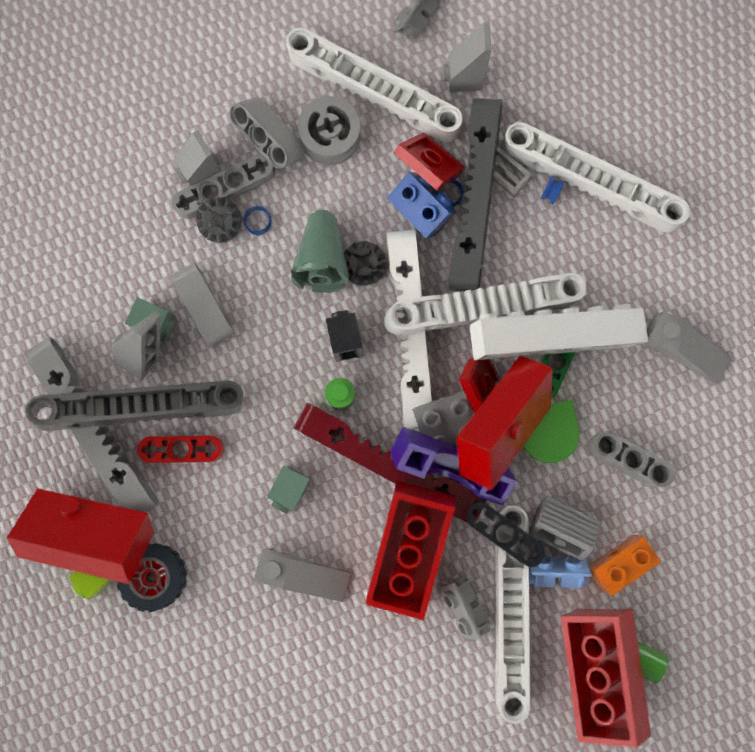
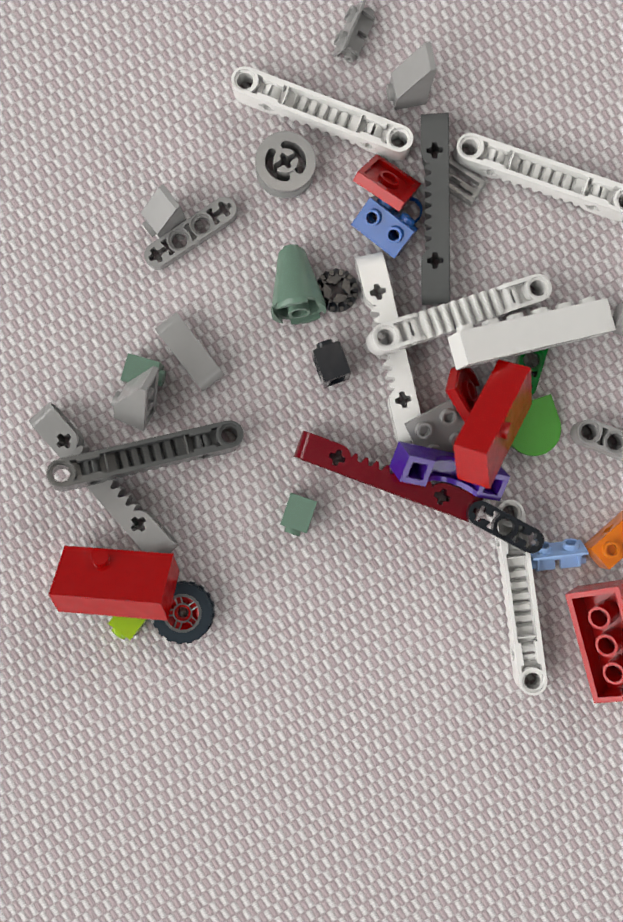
camera: 15 degrees left, 5 degrees up
(159, 441) = (169, 486): red beam -> none
(221, 206) = (178, 267): dark grey gear -> none
(254, 208) = (224, 251): blue axle -> none
(266, 132) = (225, 175): light grey beam -> none
(301, 575) = (322, 591): light grey slope -> none
(340, 394) = (333, 418): bright green brick -> none
(410, 550) = (420, 553): red brick -> none
(470, 621) = (482, 611): light grey hinge -> none
(552, 190) = (507, 195): blue bush -> none
(565, 527) = (559, 513): light grey brick -> none

